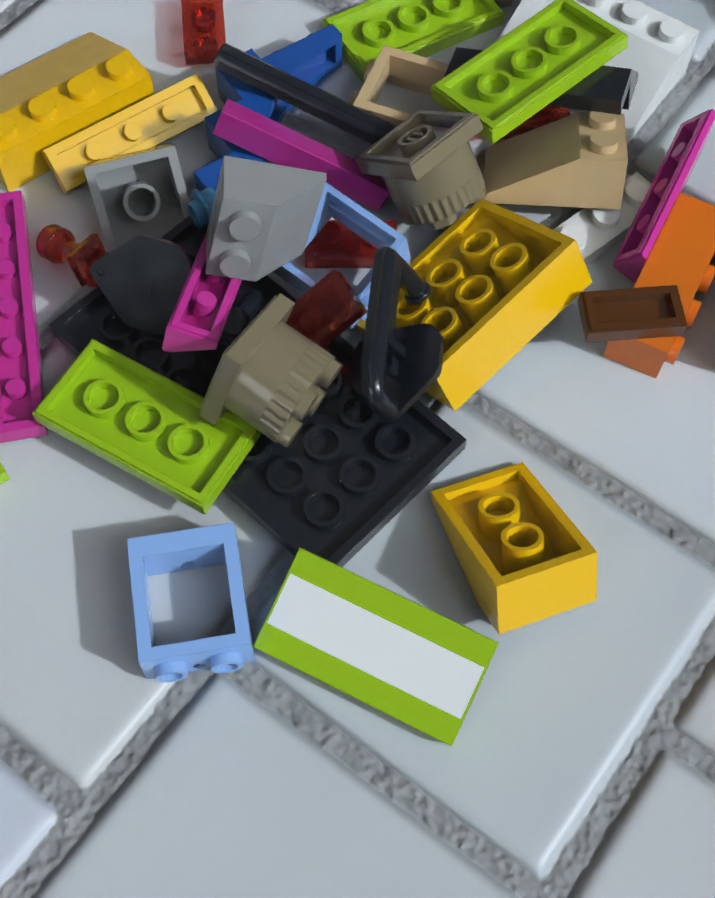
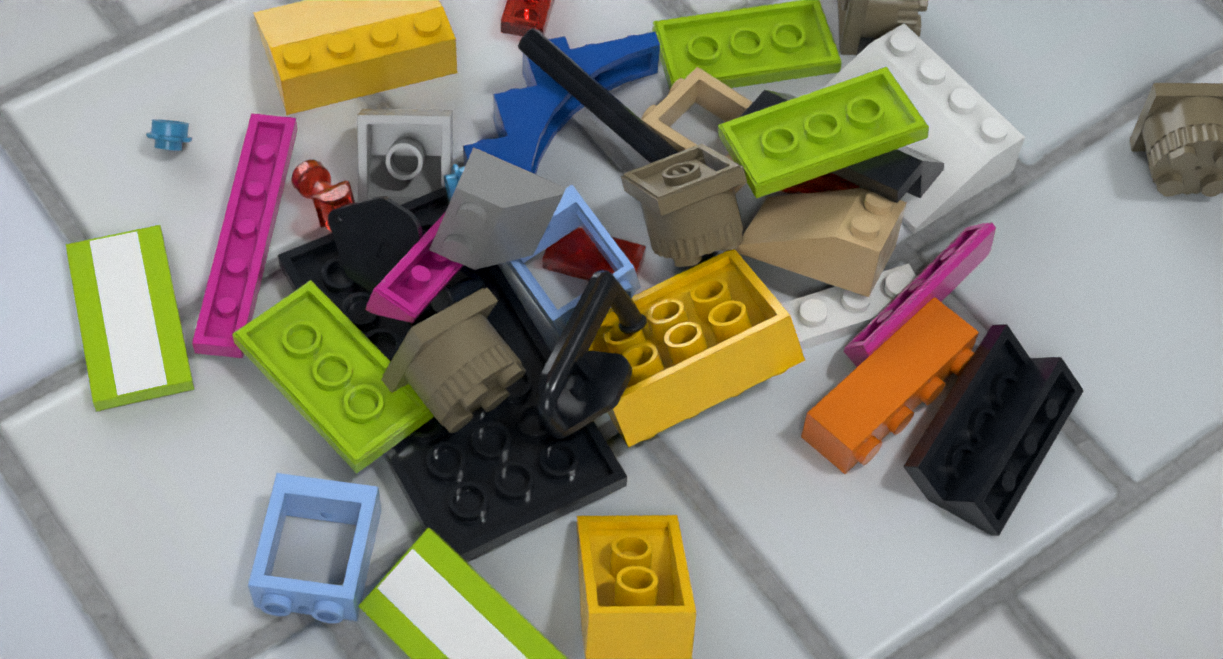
camera: 15 degrees right, 5 degrees down
(131, 130) = (423, 86): yellow plate -> none
(296, 150) = (568, 153): dark pink slope -> none
(326, 309) = (530, 316): clear red plate -> none
(631, 313) = (830, 402): reddish brown tile -> none

